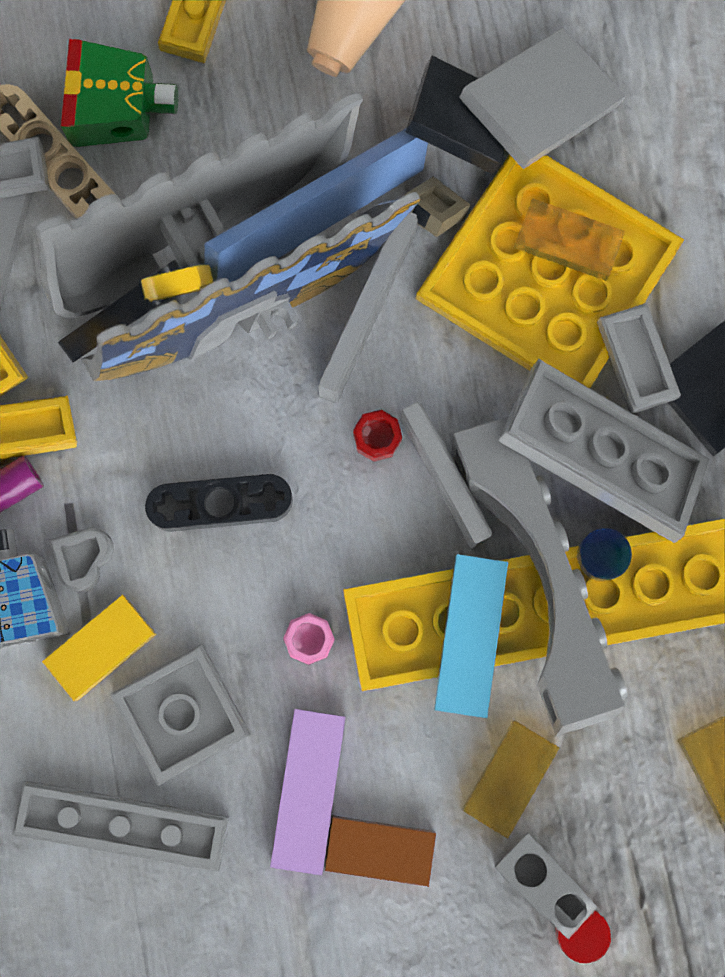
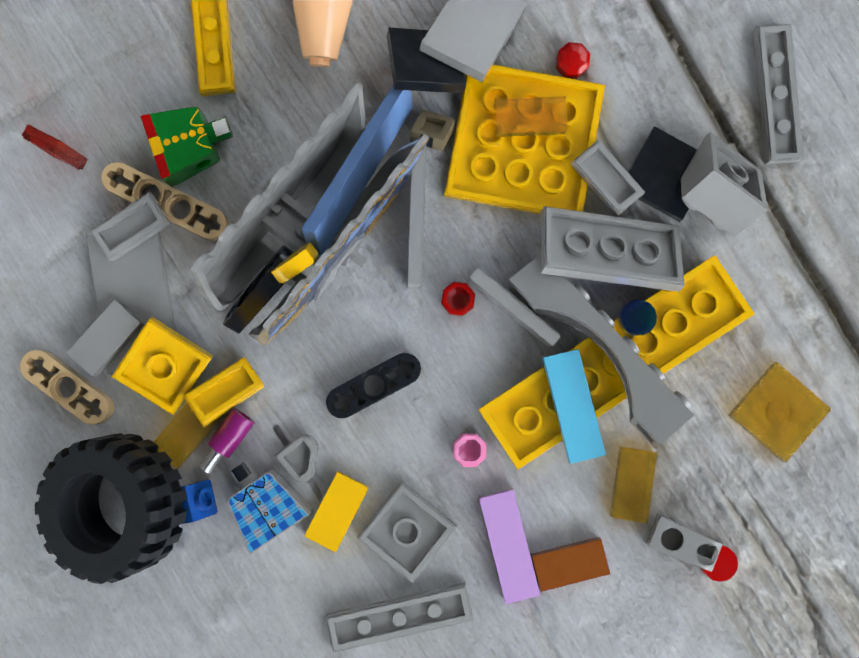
camera: 20 degrees left, 5 degrees up
(654, 192) = (572, 60): none -> red tile

